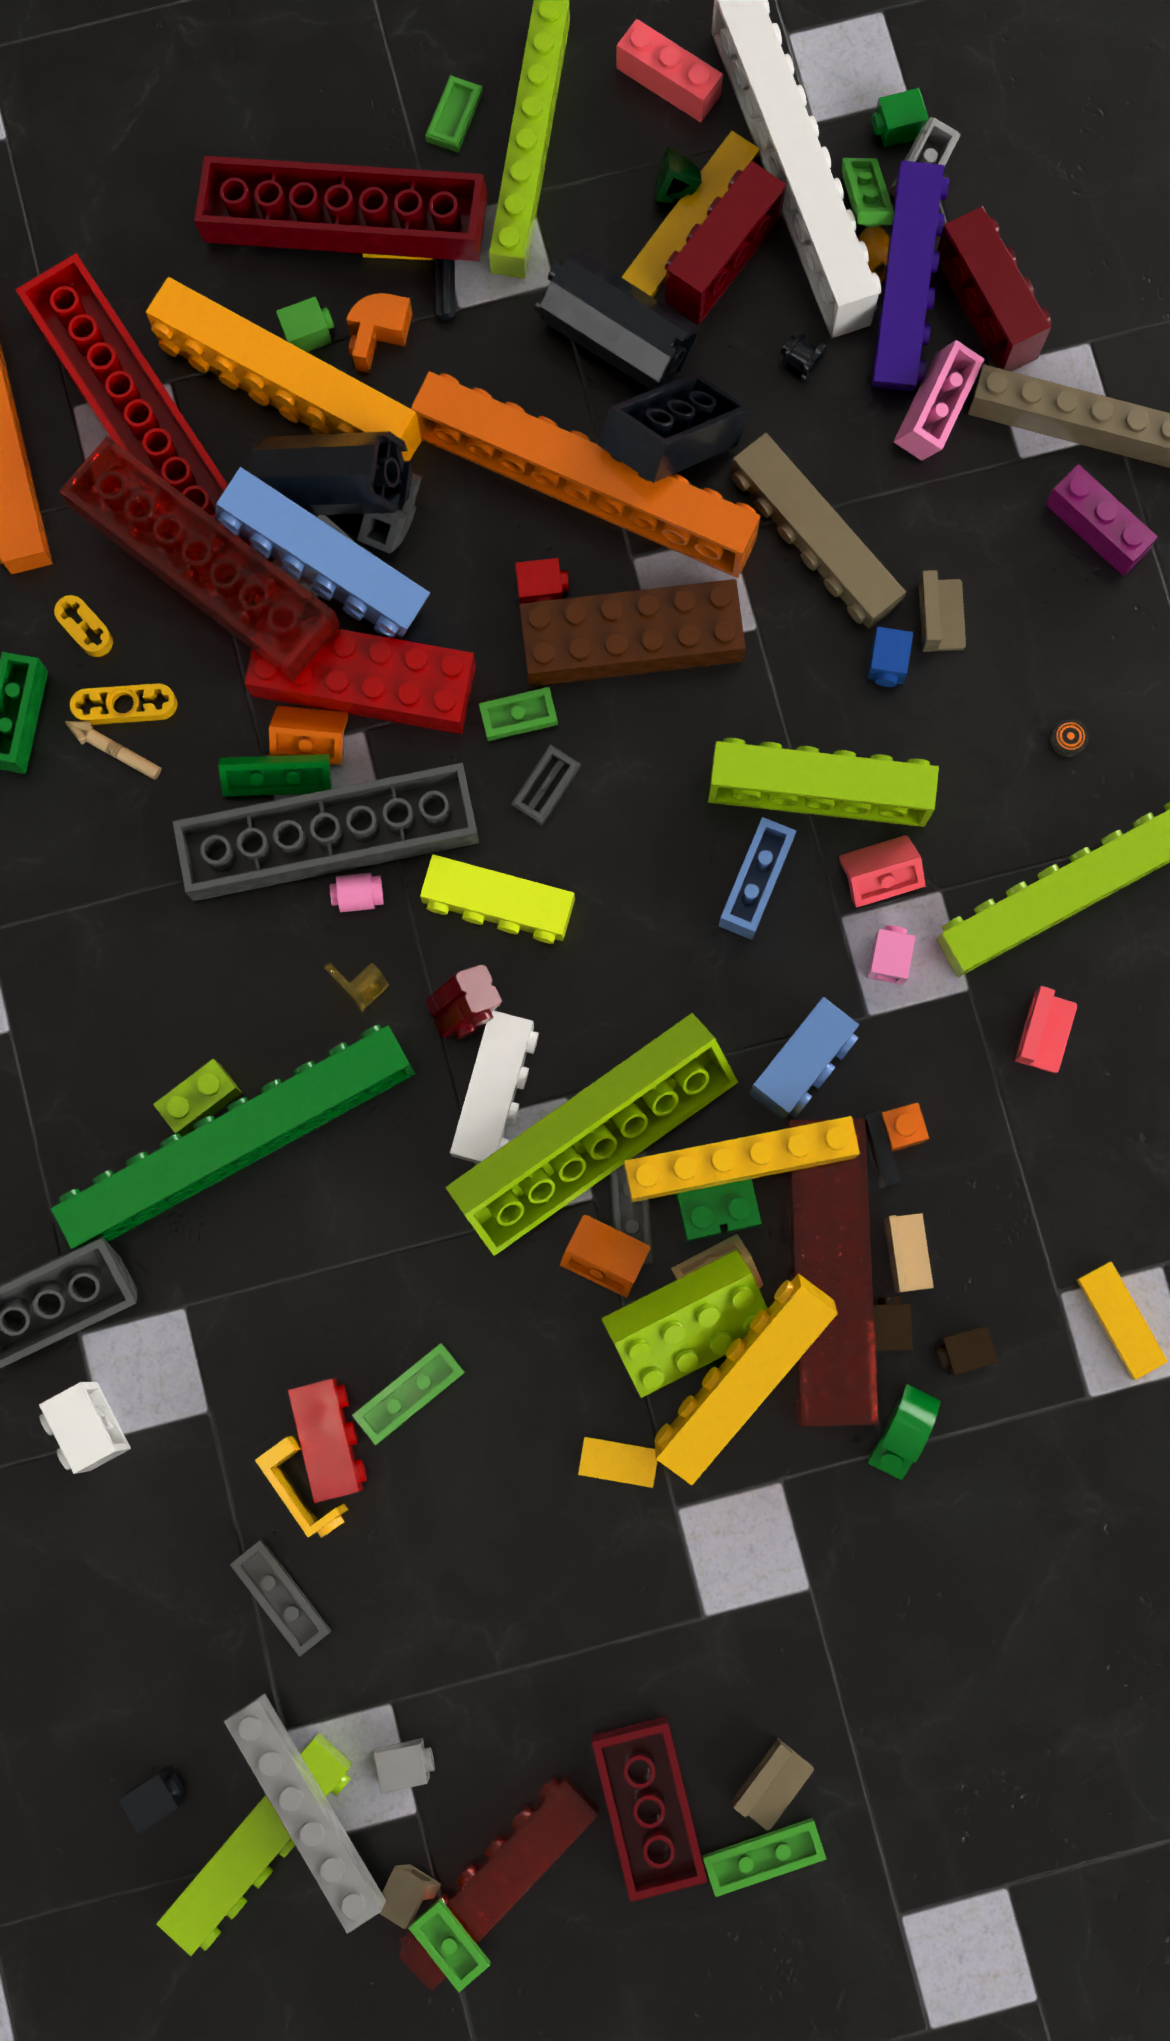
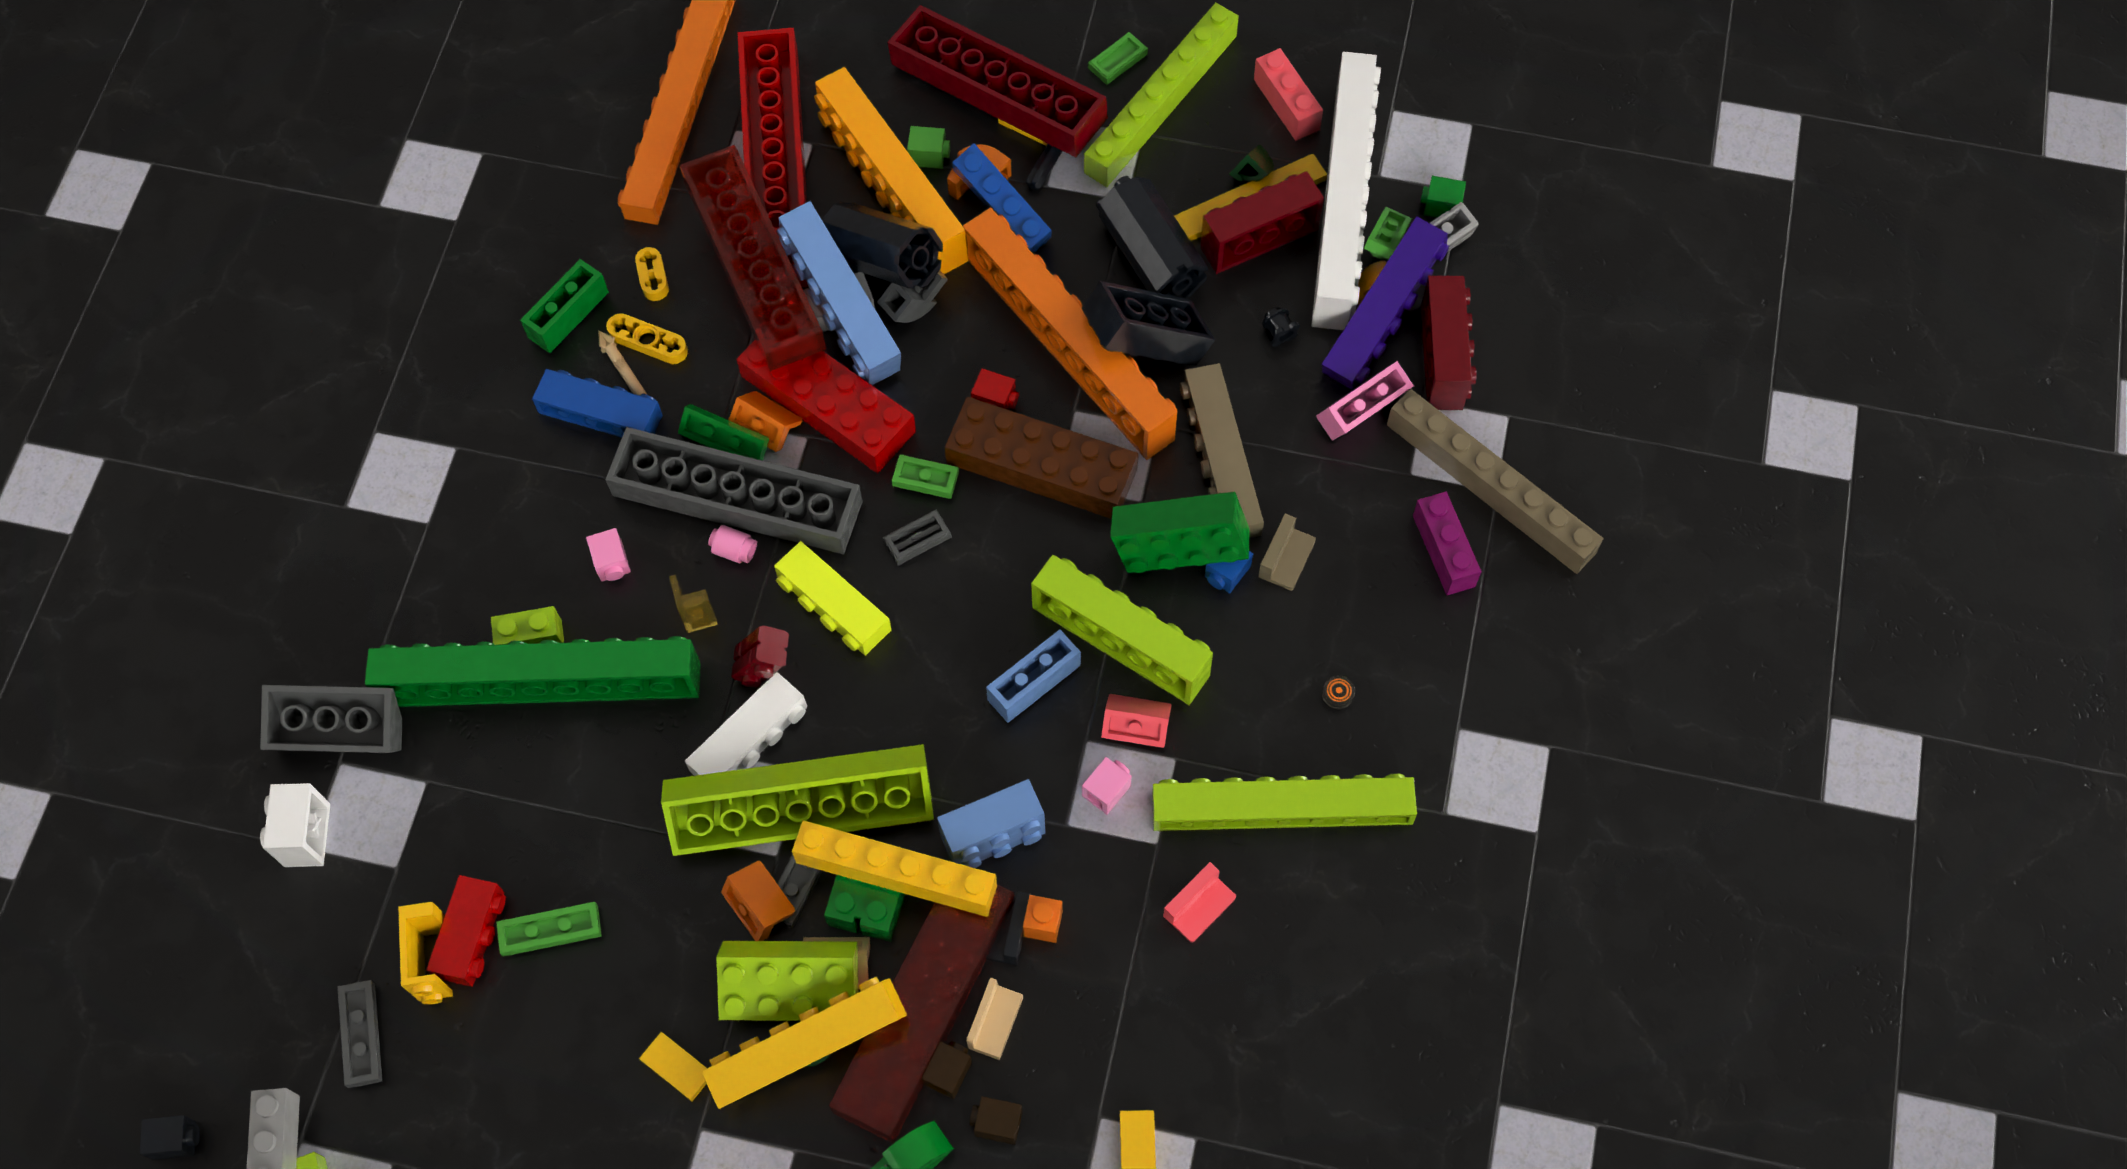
camera: 25 degrees right, 15 degrees down
(116, 809) = (594, 404): none -> blue brick
(232, 970) = (608, 555): none -> bright pink brick
(427, 350) = (1001, 196): none -> blue brick
(832, 649) = (1180, 532): none -> green brick

